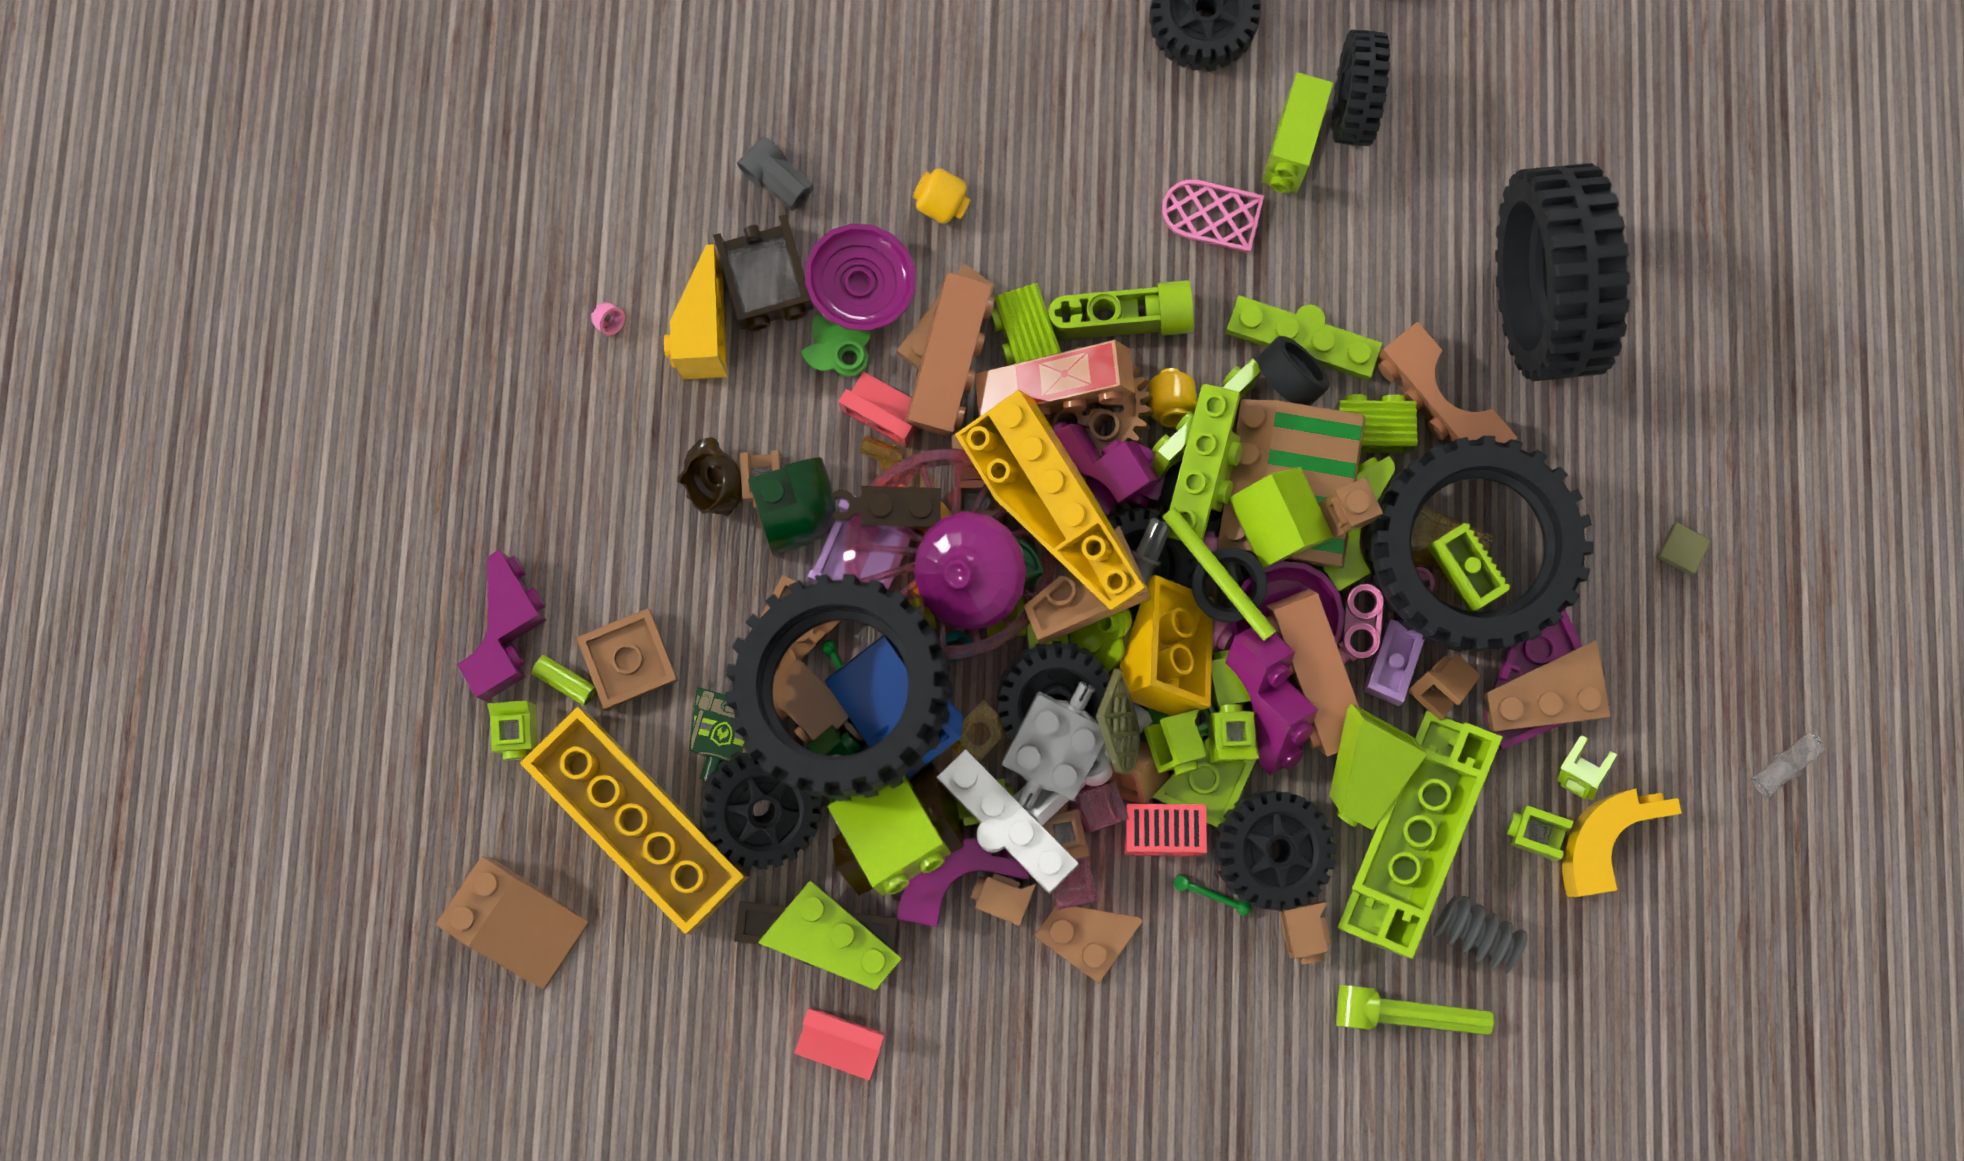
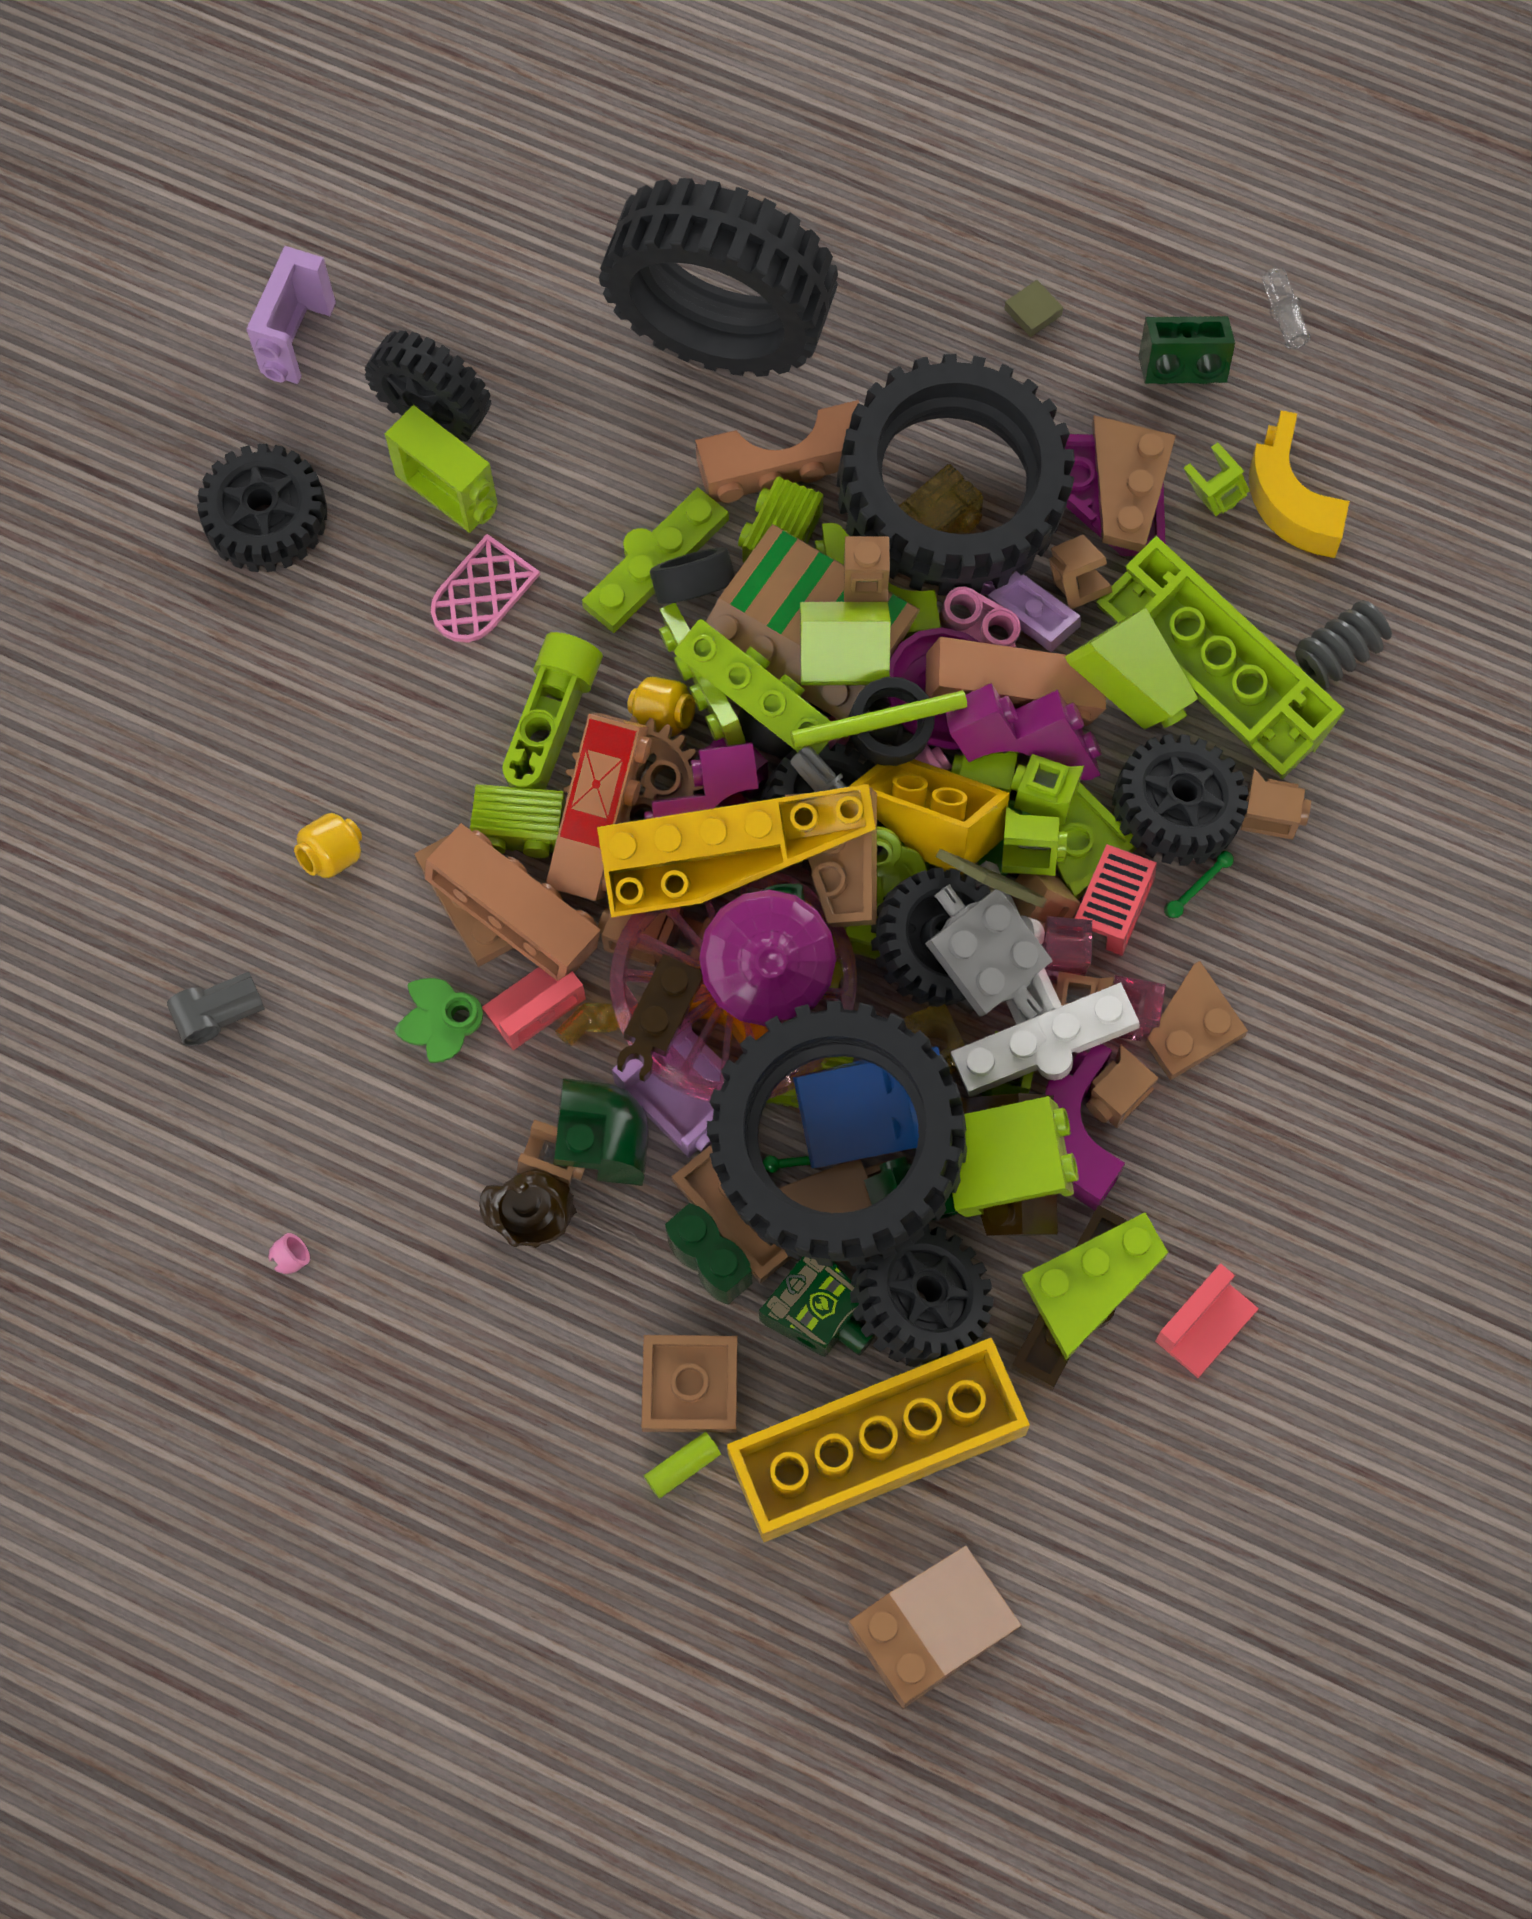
camera: 65 degrees left, 10 degrees down
(511, 614) = (579, 1490): magenta arch -> none
(513, 728) = (714, 1540): lime window -> none
(699, 323) = (363, 1150): yellow slope -> none
(731, 617) = (698, 1245): none -> dark green brick
(764, 276) = (325, 1062): window -> none
(860, 277) = (380, 960): magenta hat -> none
(1364, 1009) = (1375, 783): lime axle -> none
(1468, 567) = (974, 491): lime brick -> none
(1538, 832) = (1261, 551): lime window -> none
(1700, 694) = (1186, 349): none -> dark green brick

